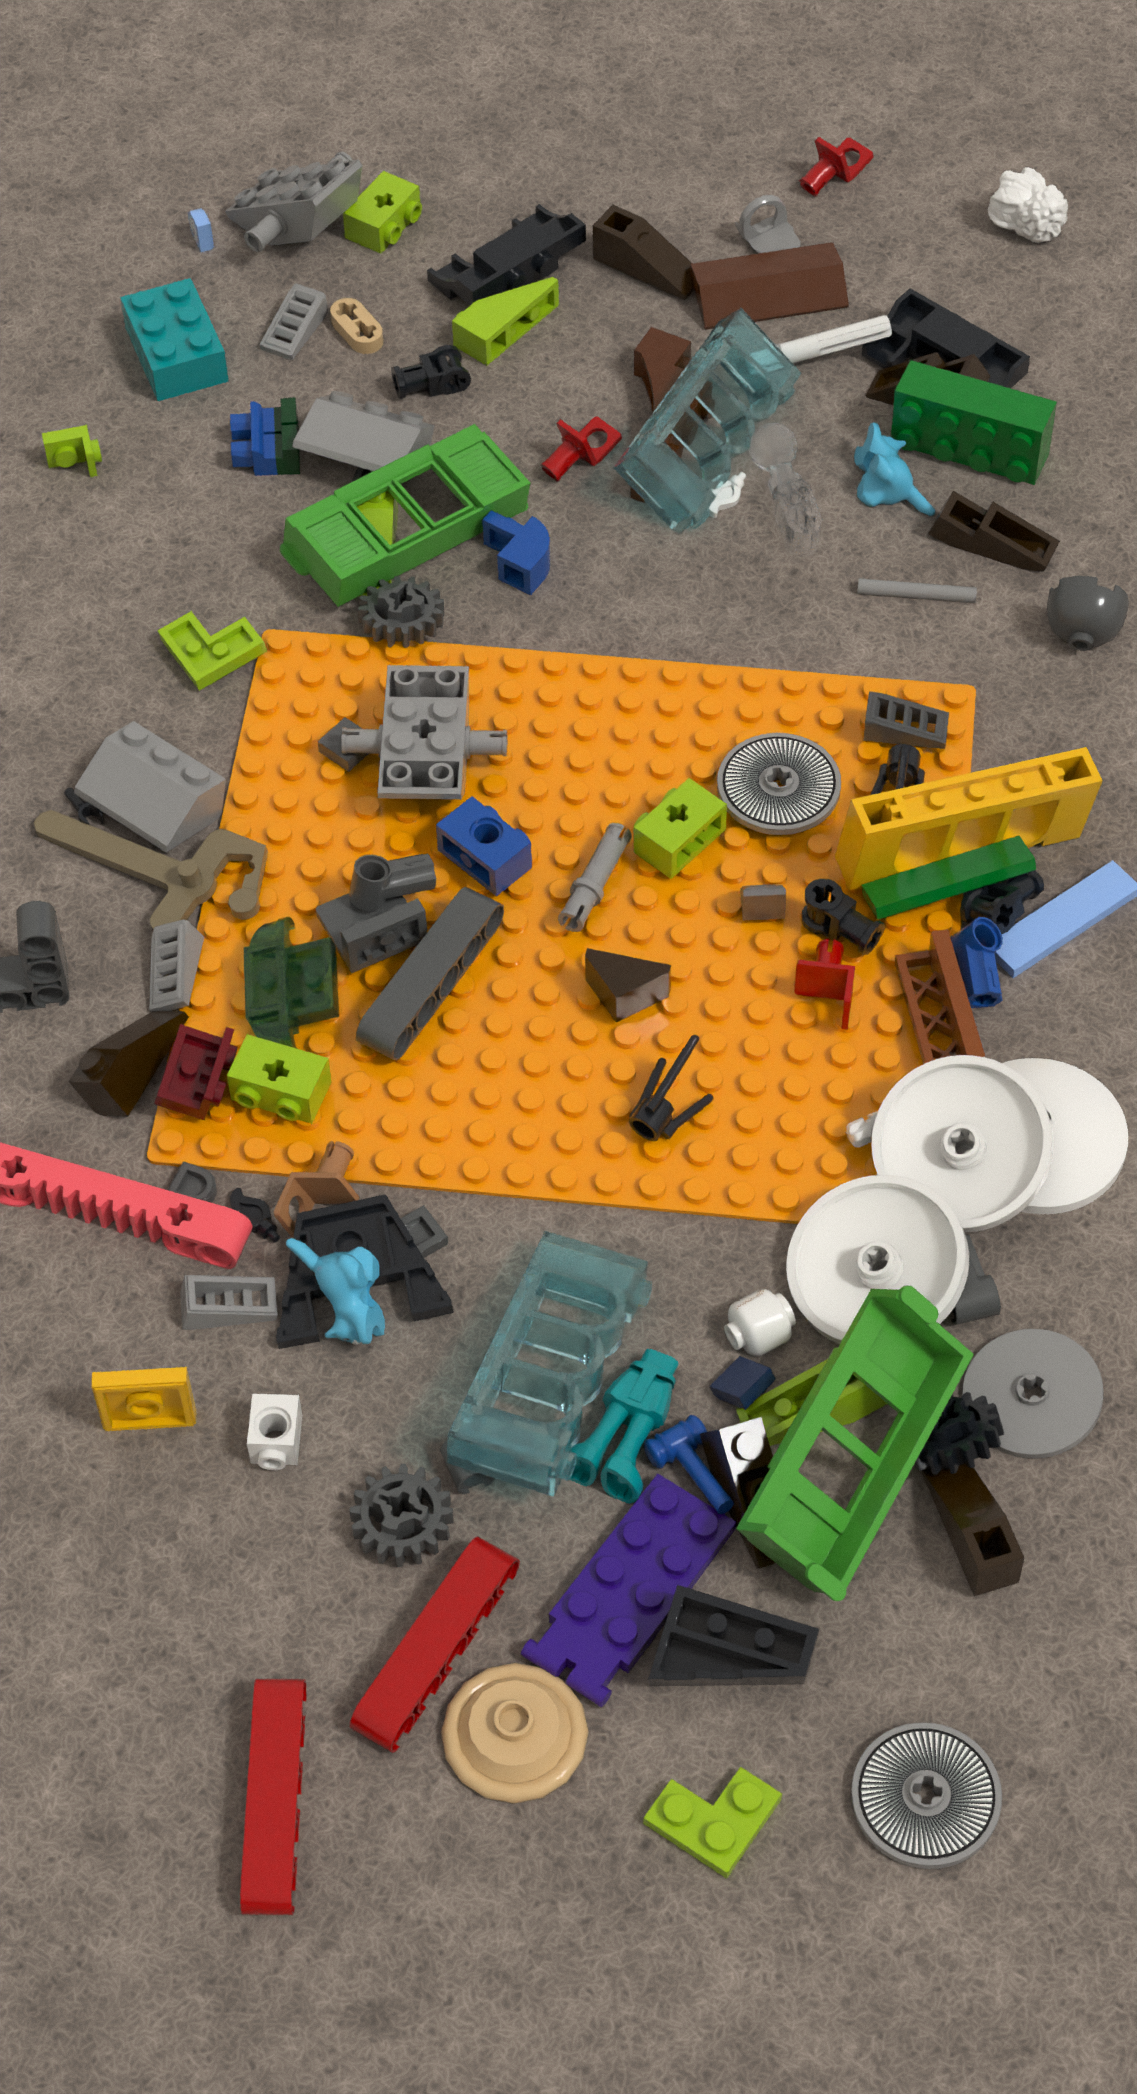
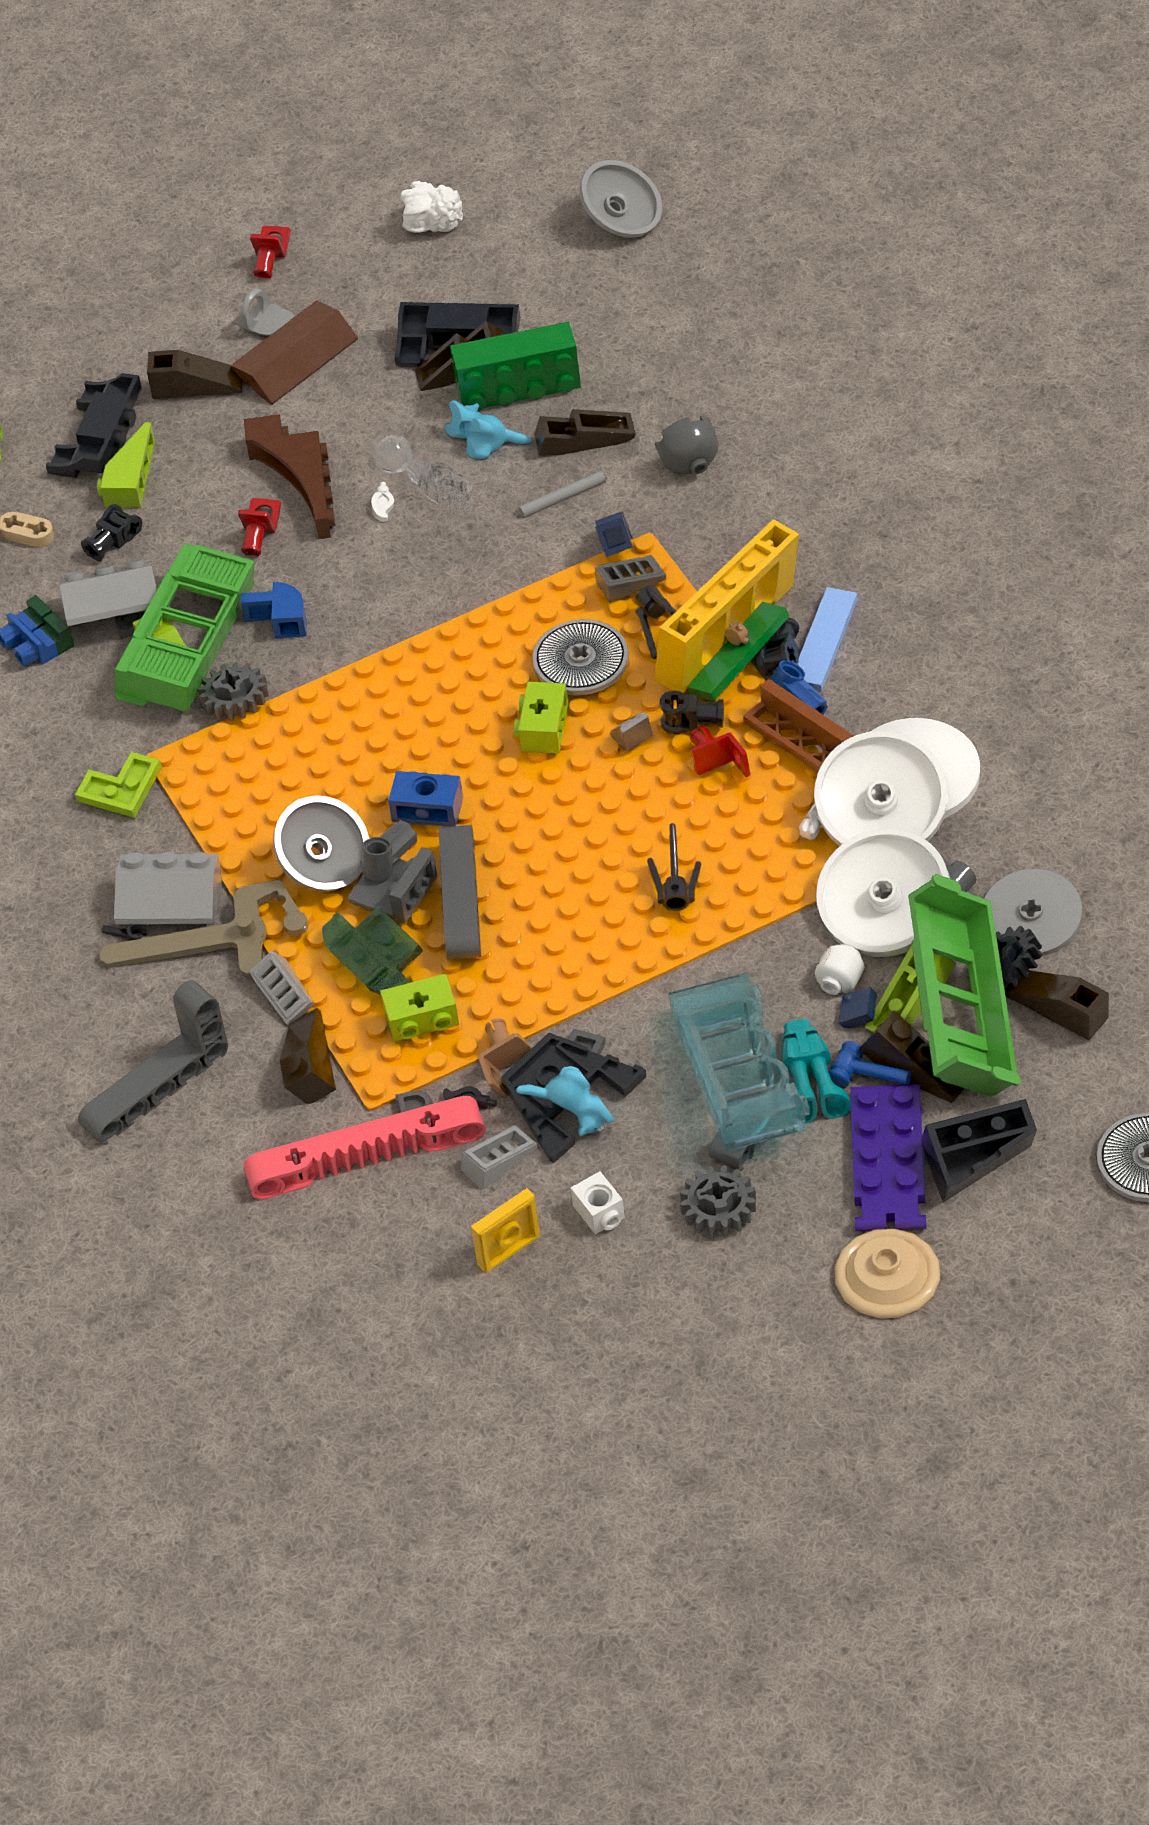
camera: 30 degrees left, 5 degrees down
(194, 1071) = (362, 1034): dark red bracket -> none
(271, 1798) = (779, 1389): red beam -> none
(328, 801) = (329, 828): none -> light grey dish
(331, 746) = (273, 791): dark grey tile -> none
(424, 734) = (327, 752): light grey slope -> none
(432, 1642) = (800, 1255): red beam -> none
(588, 889) = (515, 787): light grey pin -> none
(626, 982) = (588, 826): dark brown slope -> none
(657, 470) = (338, 459): clear light blue fence -> none
(715, 1832) = (1048, 1250): lime plate -> none
(837, 339) = (364, 372): white axle -> none
(925, 664) = (614, 533): none -> dark blue leg
(956, 856) = (737, 633): none -> medium nougat piece

